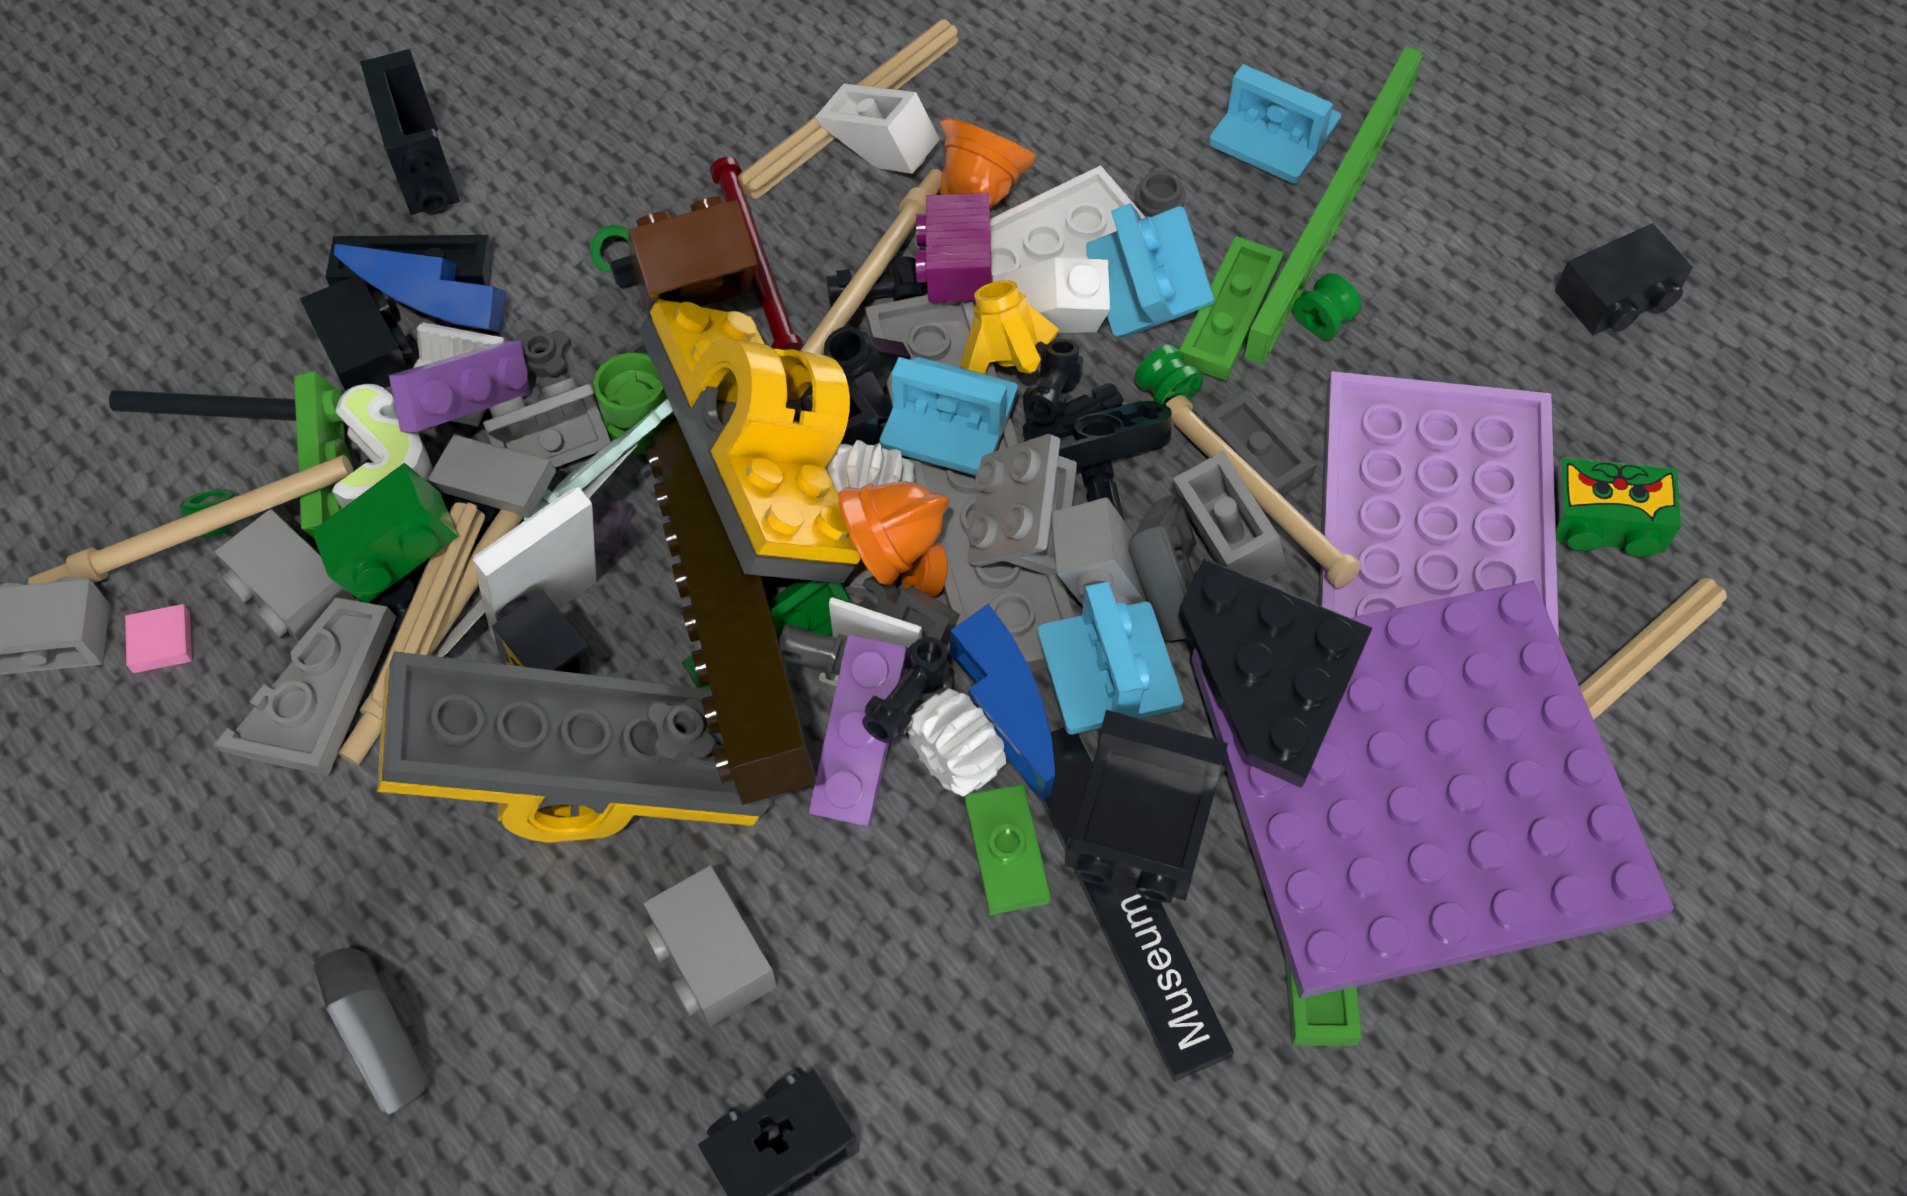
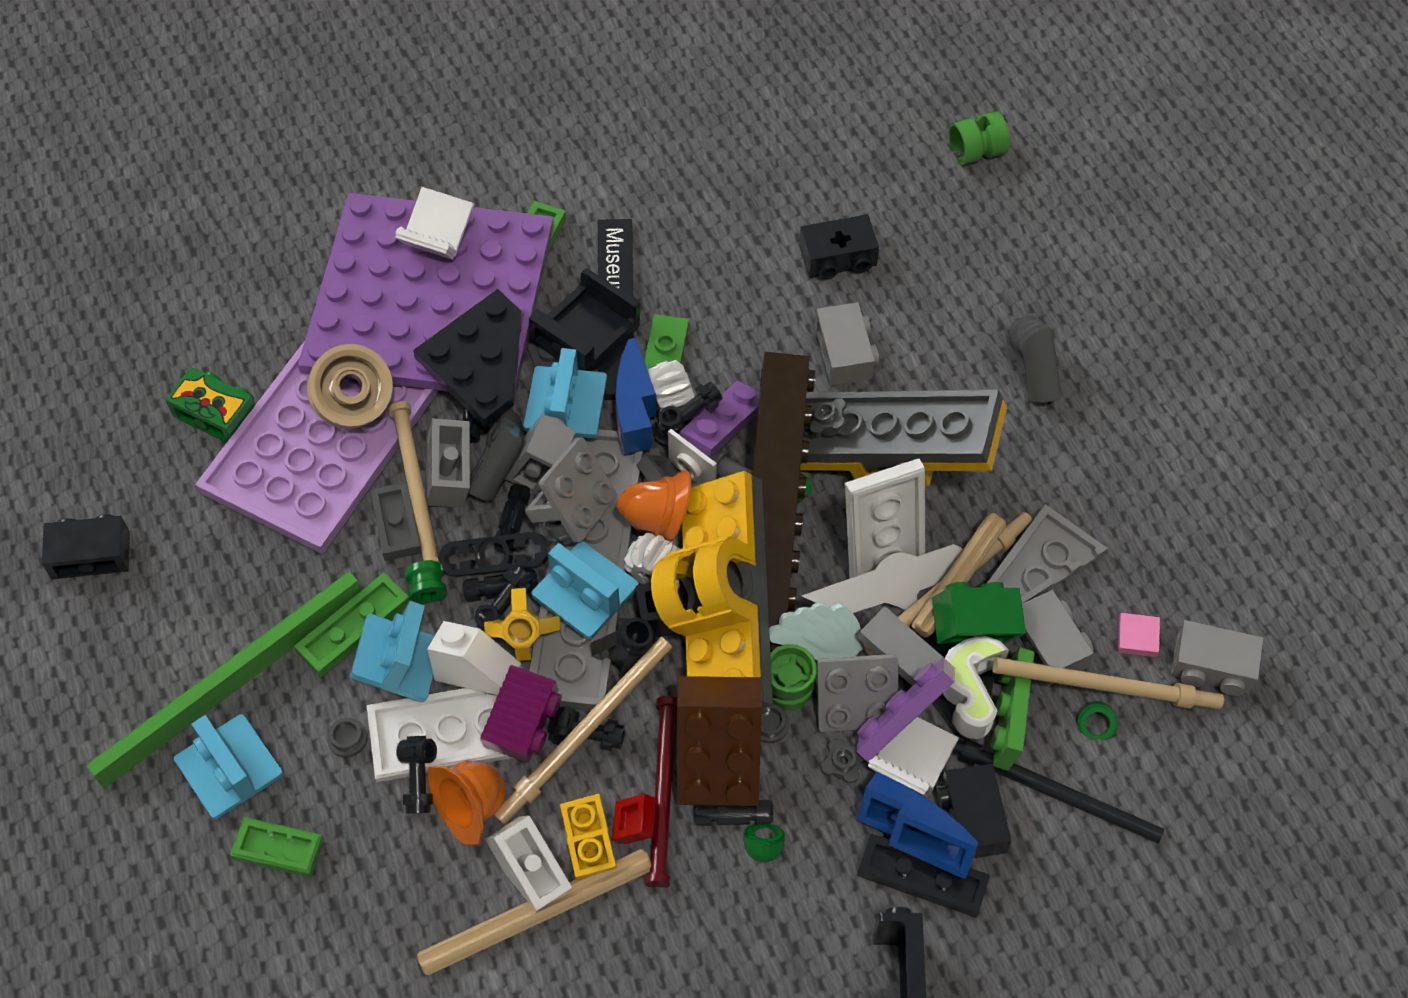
camera: 160 degrees left, 0 degrees up
(775, 209) = (634, 819): none -> red plate
(820, 183) = (588, 836): none -> yellow slope
(1055, 177) = (417, 752): none -> black bar
(1166, 73) = (277, 847): none -> bright green plate
(1327, 306) = (289, 596): green wheel -> none
(1428, 544) = (353, 362): none -> tan wheel
(1476, 851) = (436, 223): none -> white piece
(1651, 645) = (251, 333): tan axle -> none

